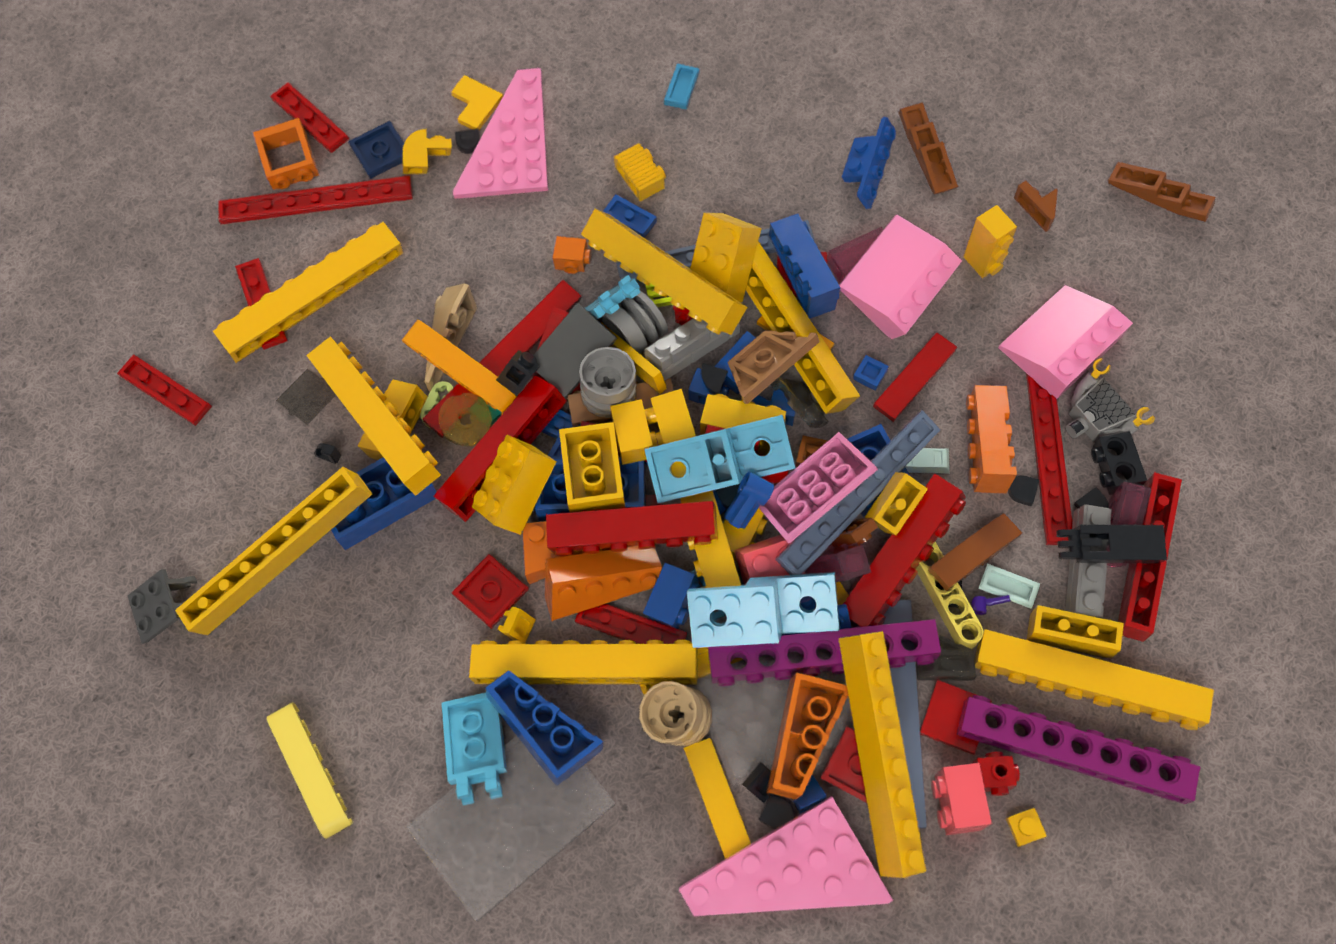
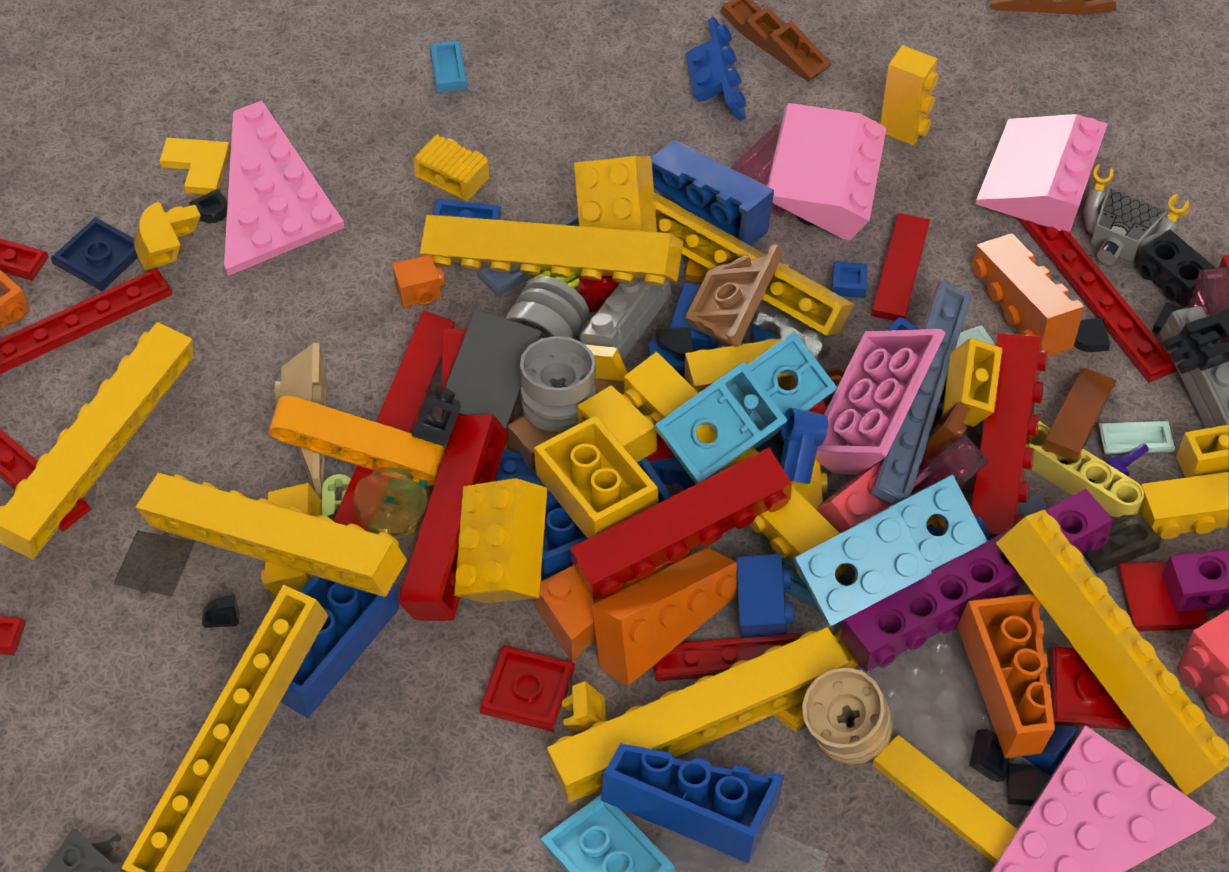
camera: 30 degrees left, 15 degrees down
(610, 299) = (517, 287): medium azure tile -> none
(1039, 208) = (940, 47): dark orange slope -> none

